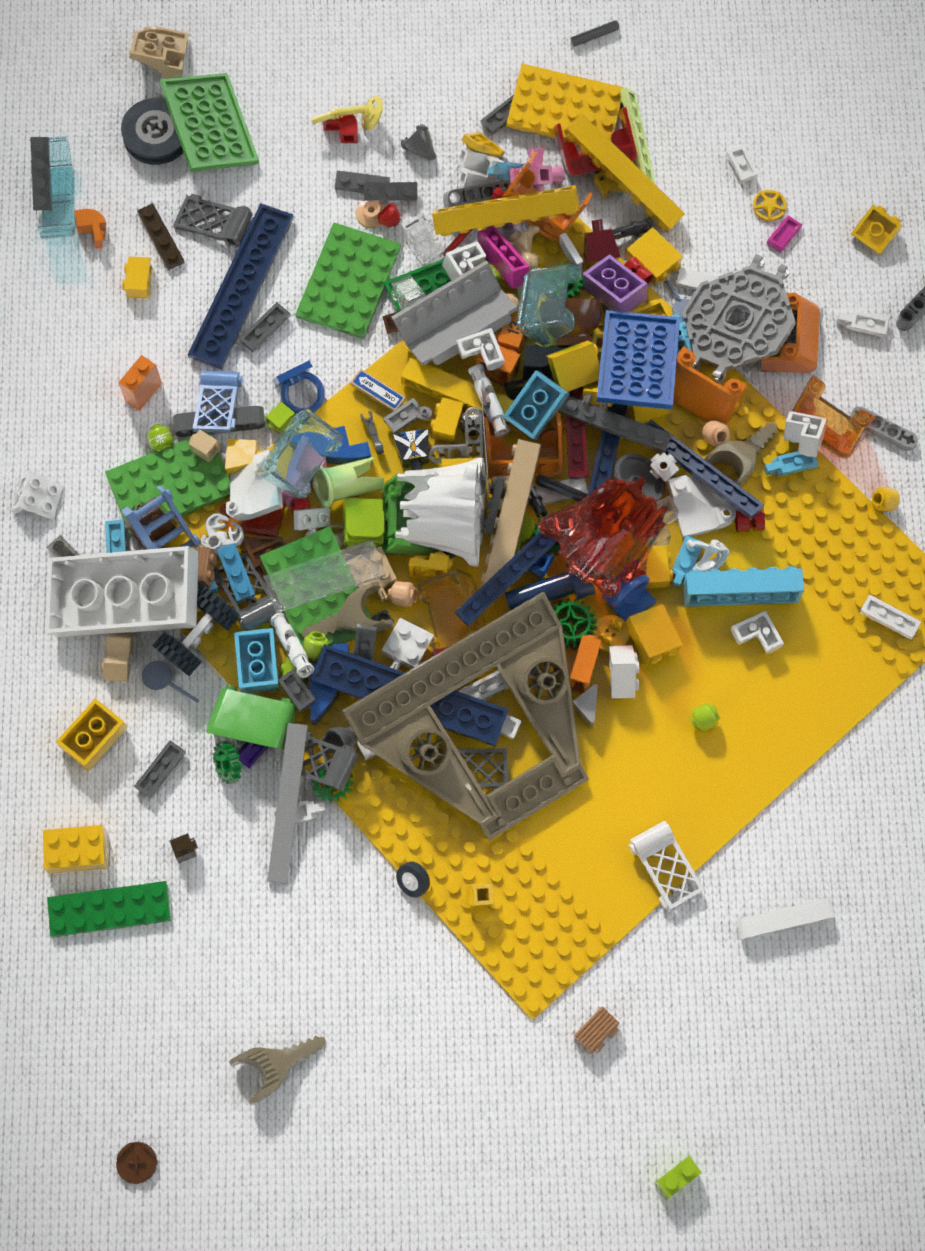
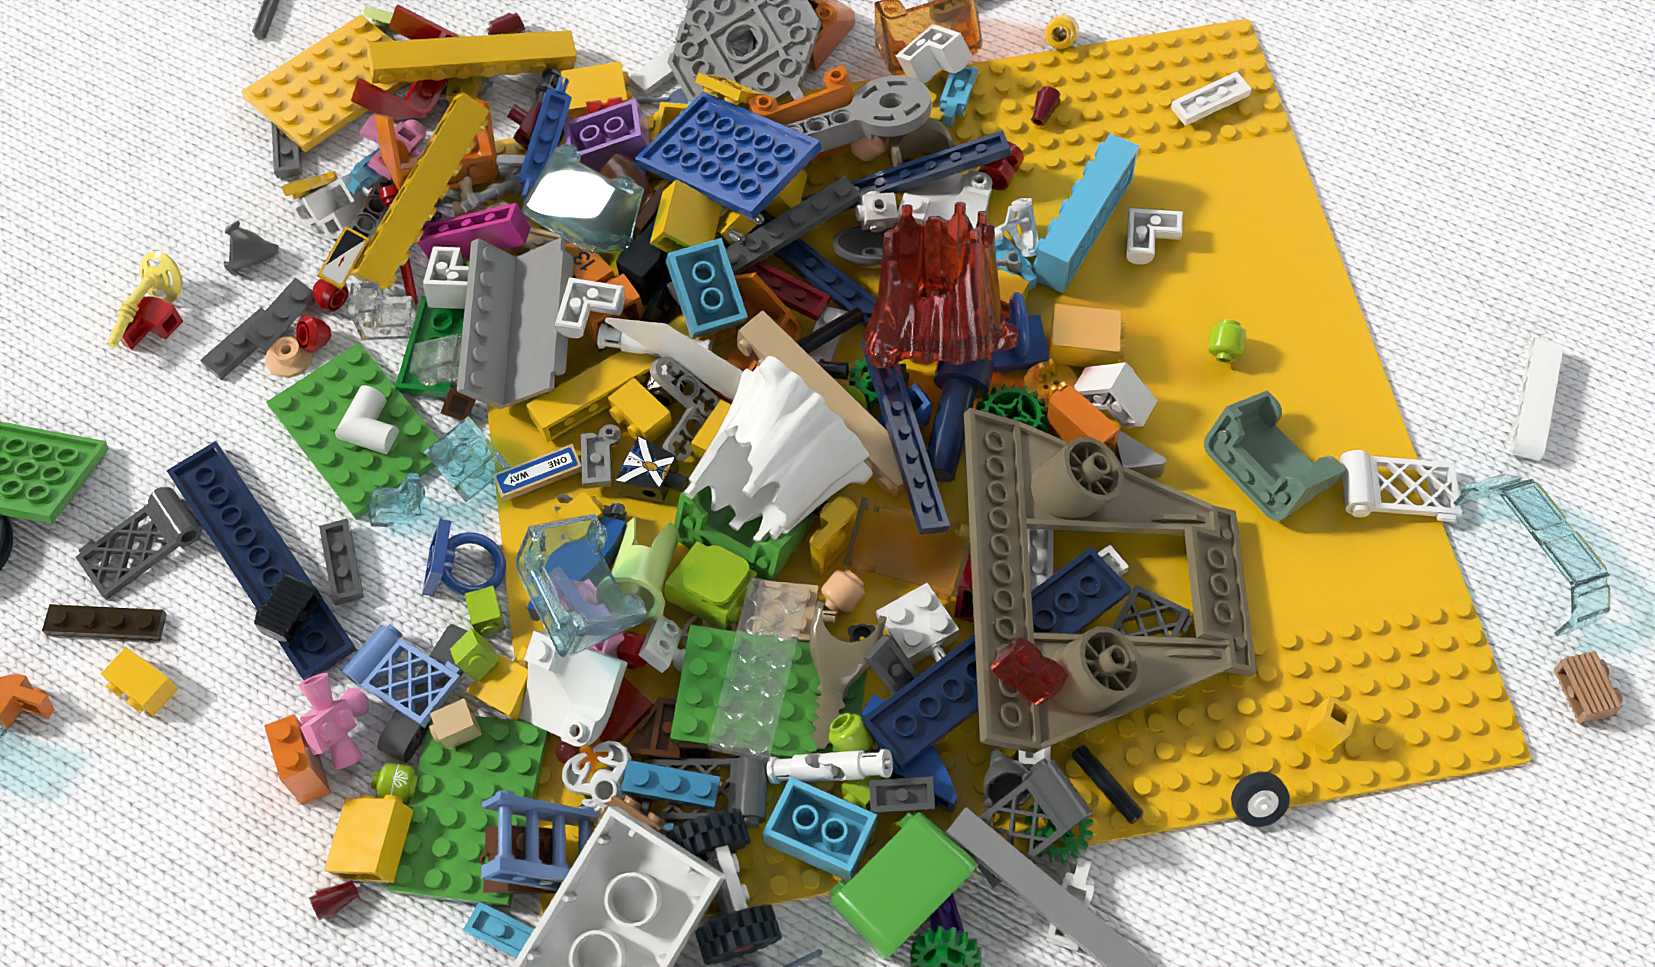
camera: 55 degrees left, 10 degrees down
(84, 449) = (332, 899): none -> dark red cone
(123, 445) = (369, 839): none -> yellow brick
(169, 384) = (330, 720): none -> bright pink brick
(217, 320) = (287, 609): none -> black brick
(246, 429) = (474, 655): none -> lime brick
(313, 331) = (397, 505): none -> clear light blue brick
(347, 279) = (361, 423): none -> white brick
(361, 349) = (466, 459): none -> clear light blue brick
(362, 430) = (582, 506): none -> yellow brick
(375, 795) = (1107, 784): none -> black axle
(396, 718) = (1031, 673): none -> clear red brick
(421, 206) = (329, 296): none -> red cone
(440, 199) = (343, 257): none -> slope
(556, 254) = (494, 191): none -> light grey piece
(591, 250) = (545, 134): none -> blue plate
(637, 780) = (1265, 459): none -> sand green windscreen
(668, 174) = (506, 24): none -> dark red brick
(671, 964) = (1558, 540): none -> clear light blue windscreen
(675, 560) = (1008, 262): none -> light grey hand
(689, 331) = (726, 89): none -> yellow plate
(724, 417) = (881, 99): none -> light grey beam
(816, 520) = (1045, 104): none -> dark red cone

